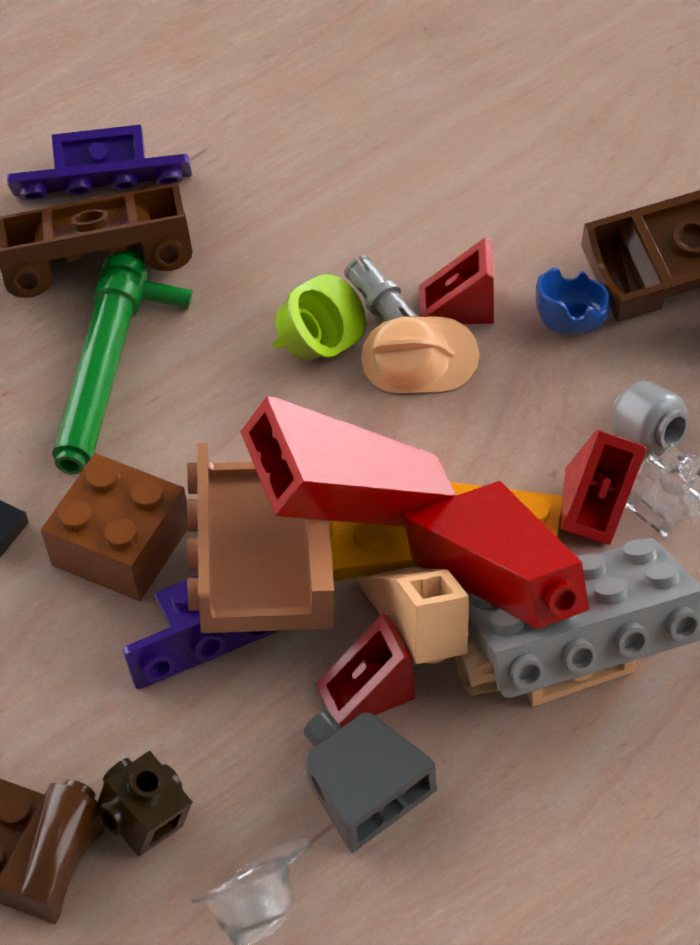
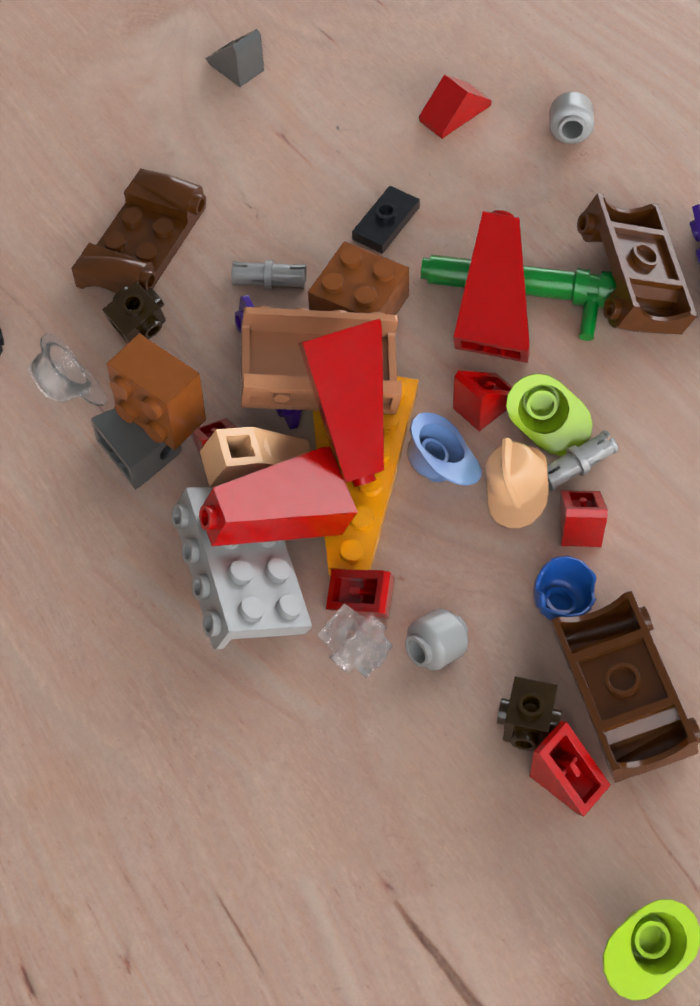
camera: 90 degrees right, 5 degrees up
(63, 648) = (269, 274): none -> light grey pin
(132, 363) = (494, 297): none -> red slope
(295, 380) = (480, 397): none -> red slope
(337, 704) = (156, 392): none -> dark orange brick
(397, 410) = (440, 451): none -> medium blue piece

